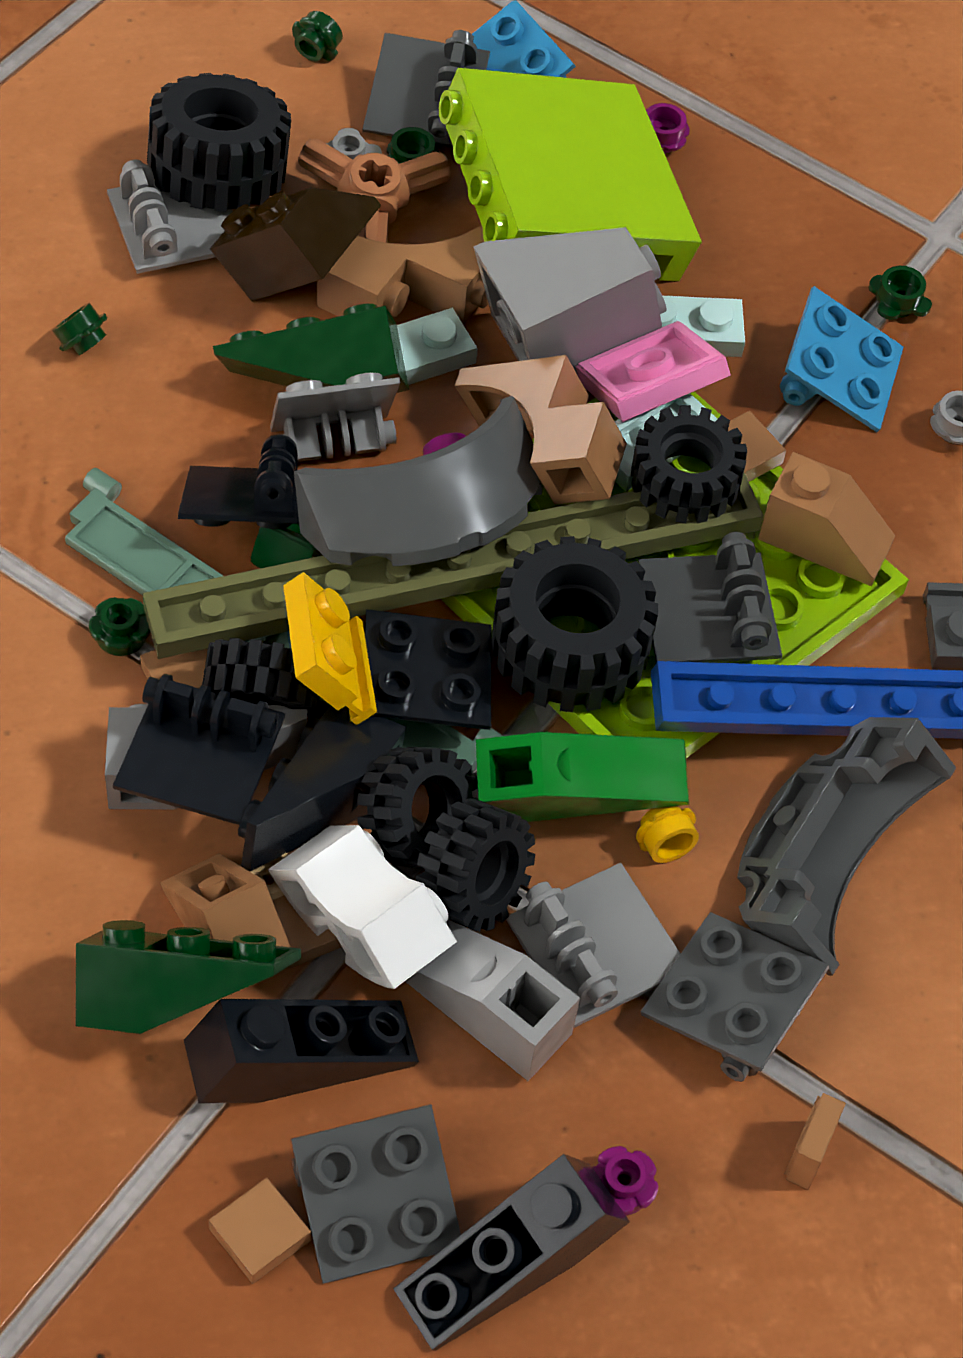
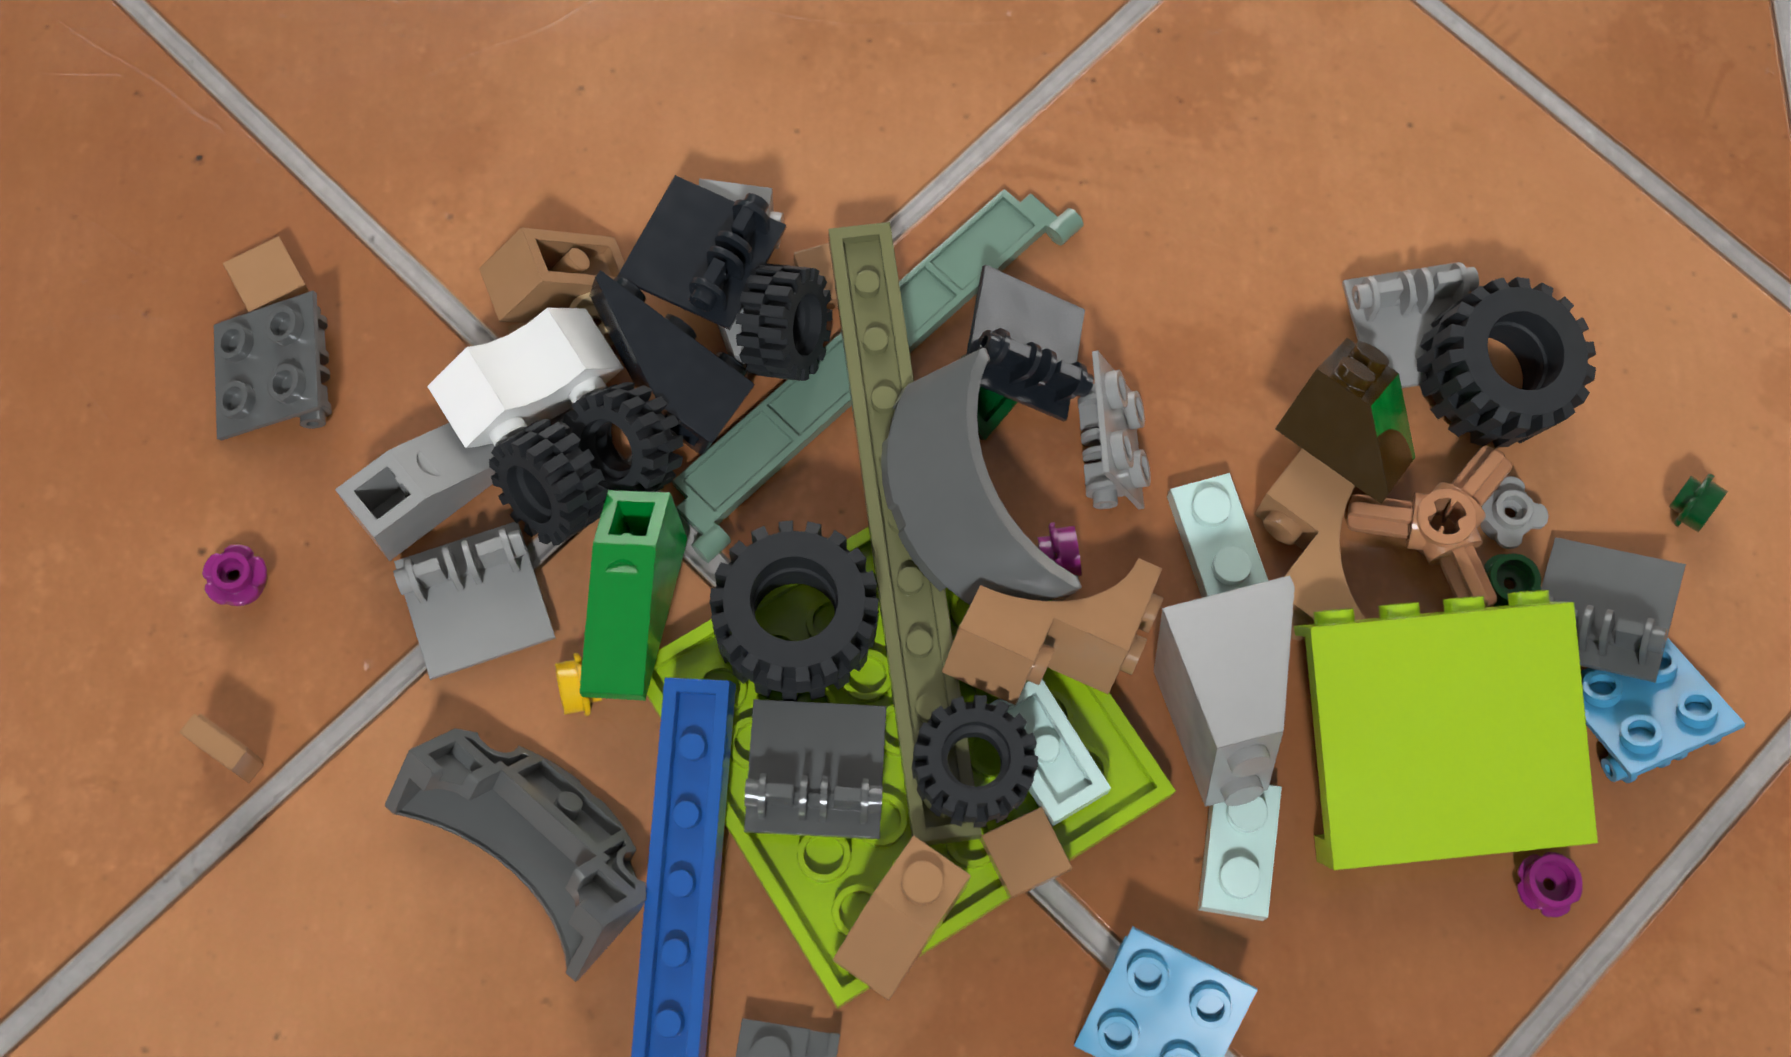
camera: 100 degrees right, 15 degrees up
(81, 329) = (1258, 217): dark green plate -> none
(119, 638) = (907, 216): dark green plate -> none
(147, 978) = (479, 208): dark green slope -> none
(294, 1046) = (414, 321): black slope -> none
(320, 350) = (1182, 442): dark green slope -> none
(329, 647) = (786, 367): yellow plate -> none
(430, 669) = (777, 471): black hinge -> none
(512, 1250) = (189, 474): slope -> none
(652, 370) = (1133, 766): bright pink tile -> none
(735, 993) = (383, 705): dark grey hinge -> none

